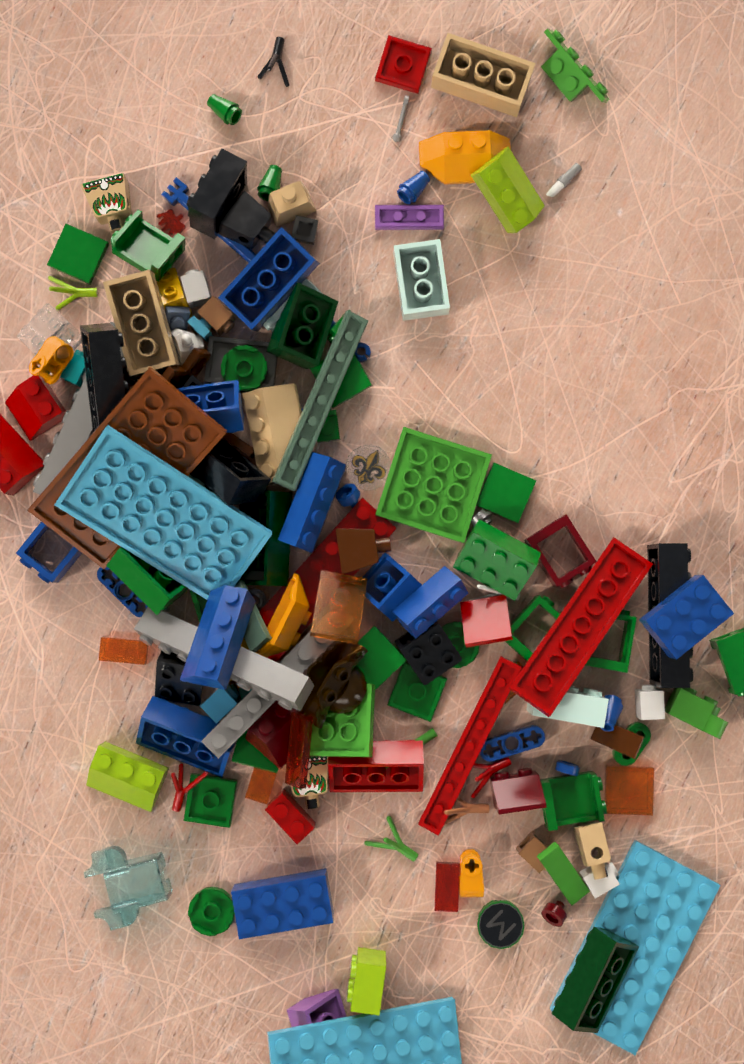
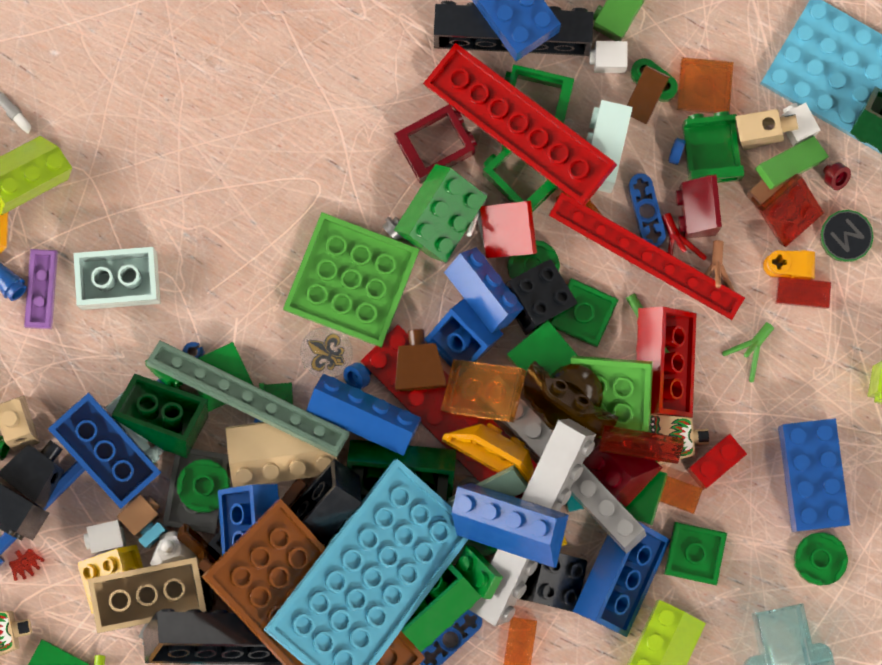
camera: 85 degrees left, 5 degrees down
(146, 246) = (52, 591): panel -> none
(177, 317) = (137, 557): sand blue plate -> none
(179, 611) = (478, 572): none -> green plate
(180, 790) = (684, 586): red plant -> none
(221, 702) = (583, 530): dark azure brick -> none
(305, 229) = (46, 408): dark grey plate -> none
(505, 492) = (365, 199): green tile -> none
(520, 873) = (790, 210): none -> clear red plate
(613, 712) = (616, 95): blue cone -> none

